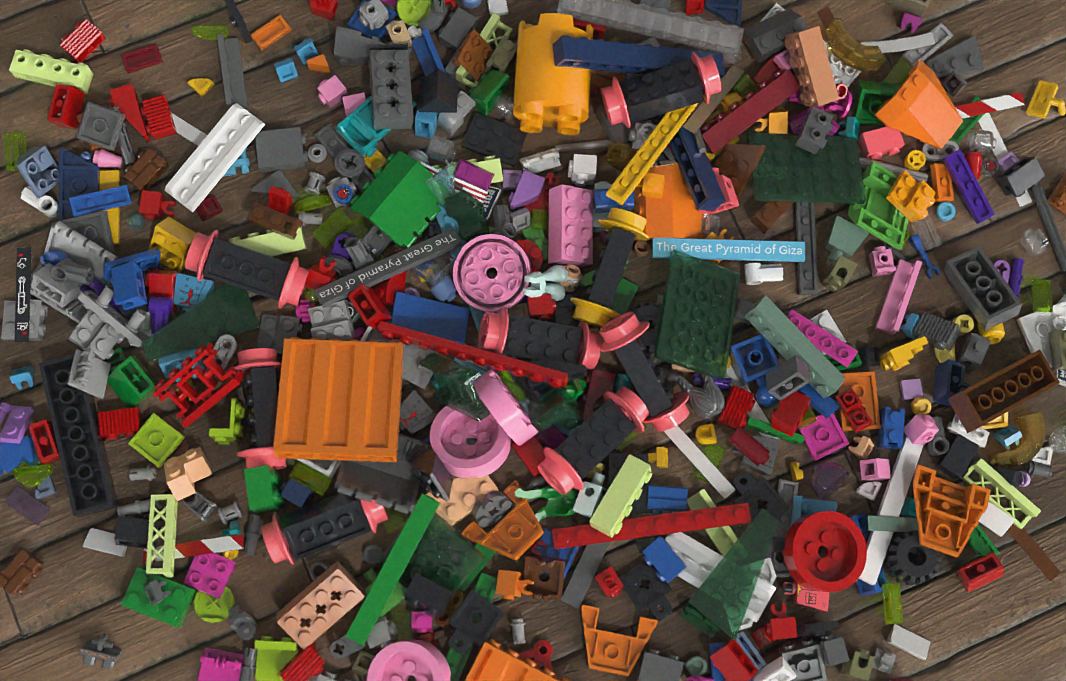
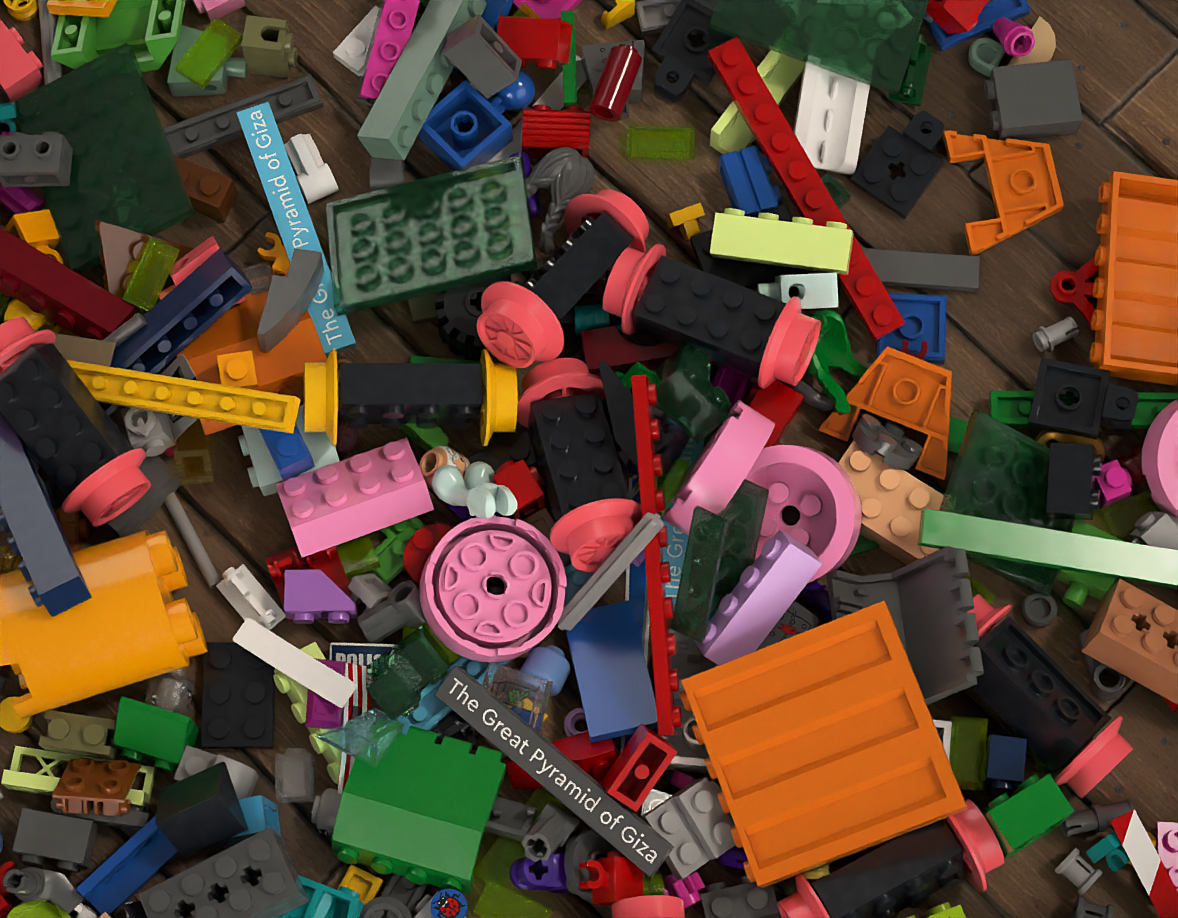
camera: 100 degrees left, 5 degrees down
(429, 401) = (759, 599): none -> lavender brick
(431, 473) = (877, 549): black slope -> none
(474, 330) = (610, 570): none -> light grey axle
(494, 164) = (294, 663): none -> white sticker
(510, 178) = (301, 634): lavender tile -> none
(512, 584) = (989, 369): orange brick -> none
(544, 589) = (973, 313): reddish brown piece -> none
(582, 169) = (244, 515): white brick -> none
(609, 582) = (918, 224): red brick -> none
(664, 559) = (849, 149): blue brick -> none
(686, 227) = (290, 297): none -> dark grey slope
(700, 461) = (669, 149): white sticker -> none
(706, 434) = (617, 164): yellow tile -> none
(727, 166) = (151, 274): none -> clear neon green tile
(845, 241) = (209, 53): none -> clear neon green tile

